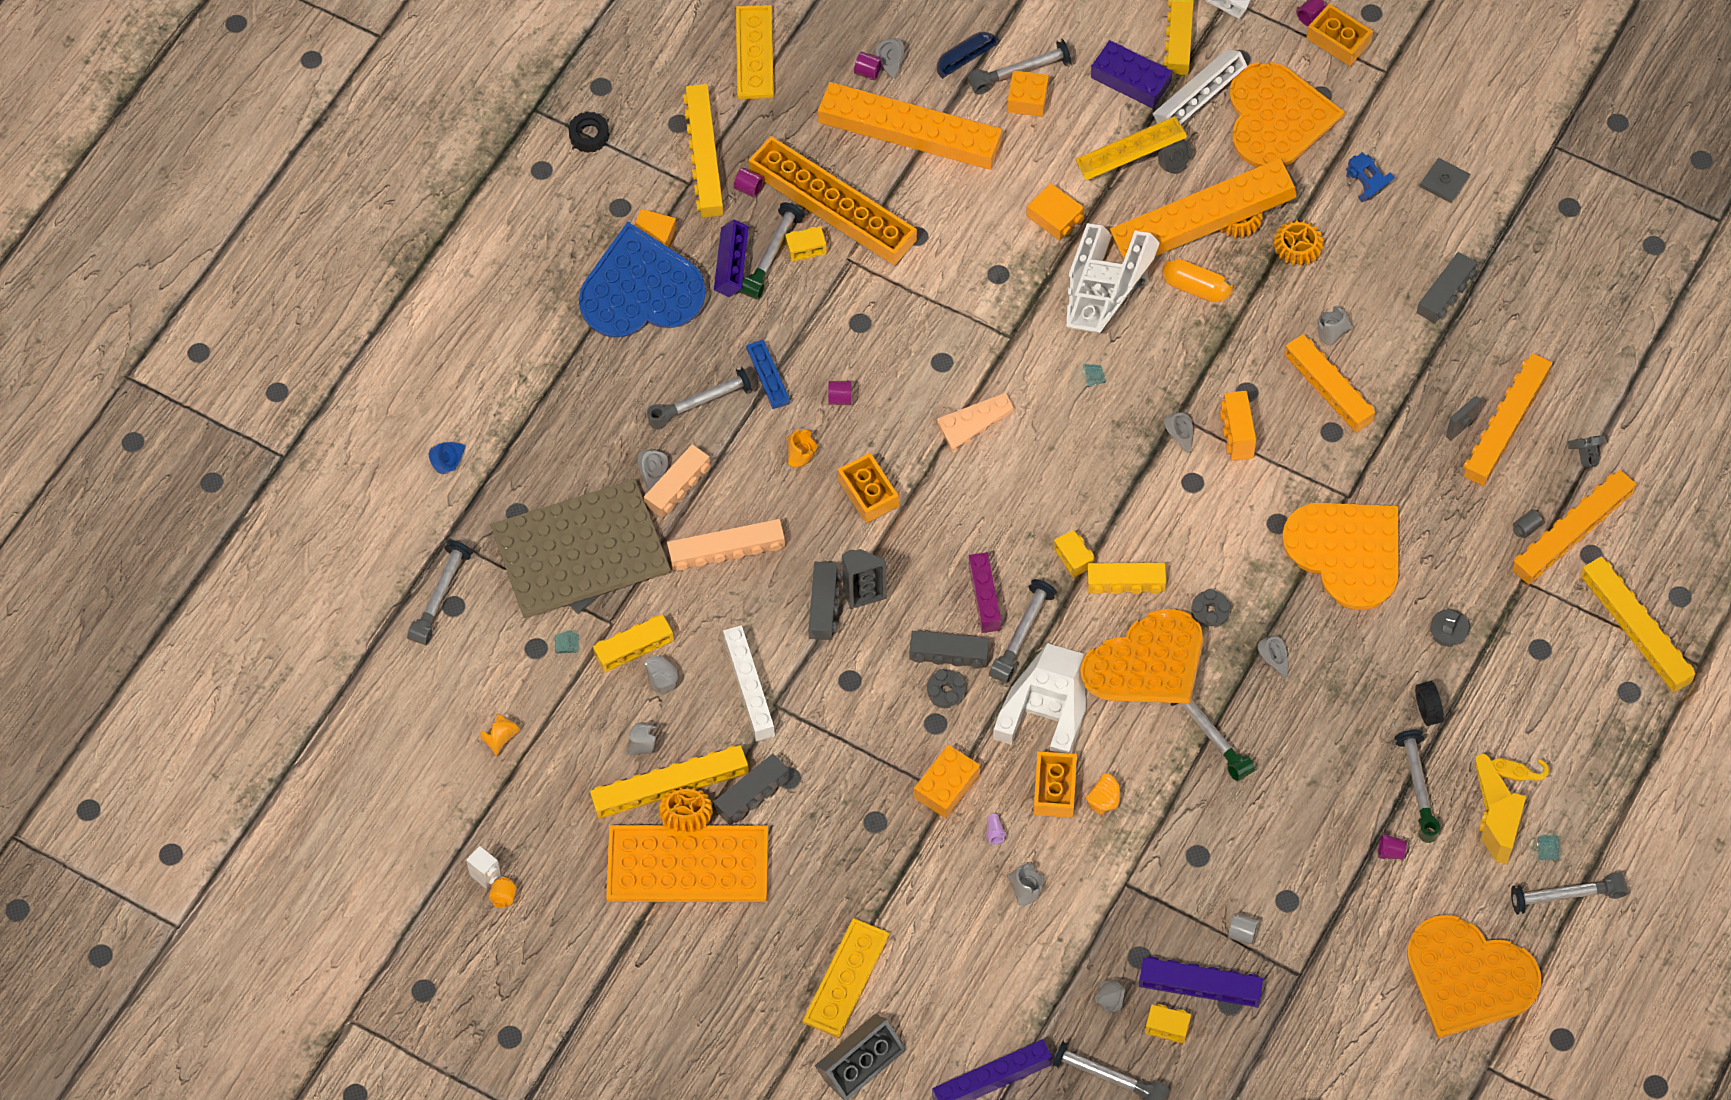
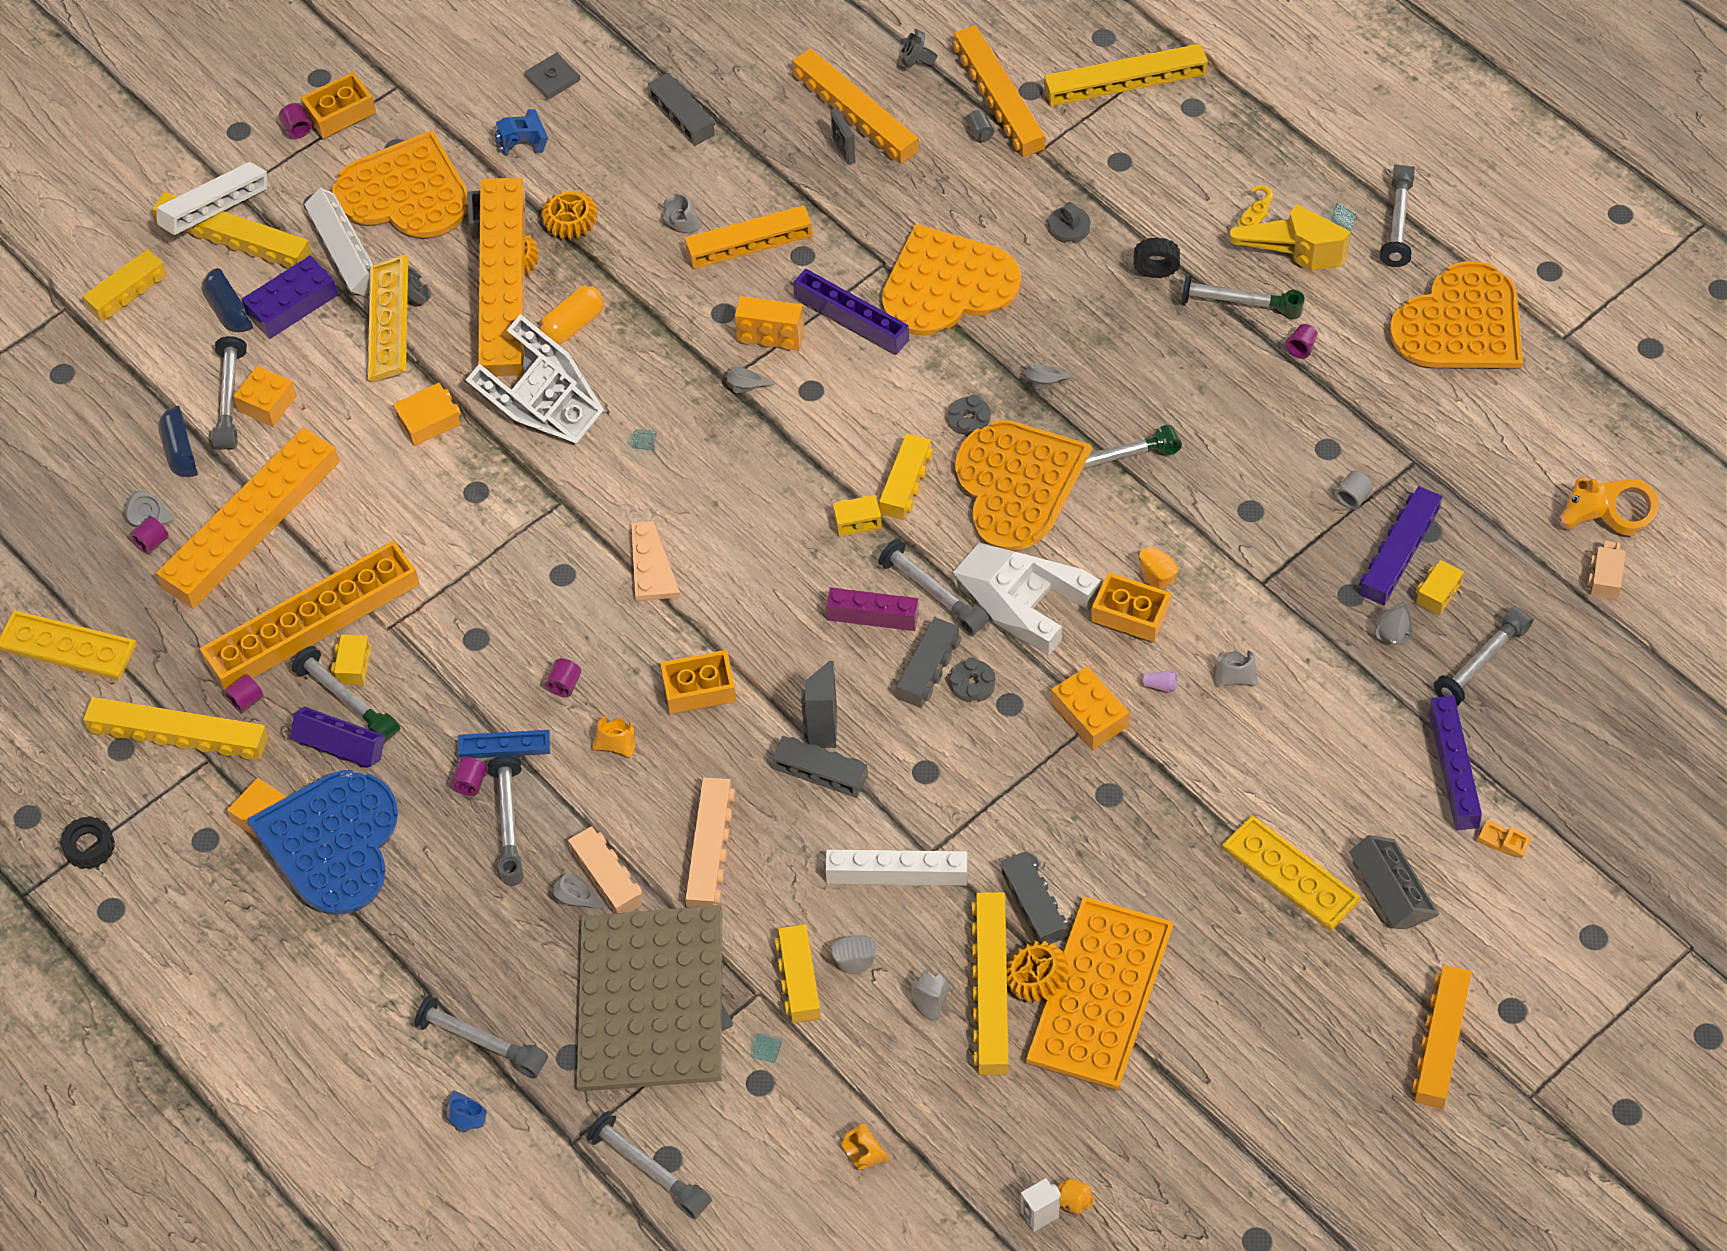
camera: 70 degrees left, 5 degrees down
(501, 482) = (527, 1059): none -> piece
(728, 358) = (468, 776): none -> magenta piece
(1113, 30) = (225, 302): none -> dark blue brick
(1278, 483) = (851, 311): none -> dark purple brick

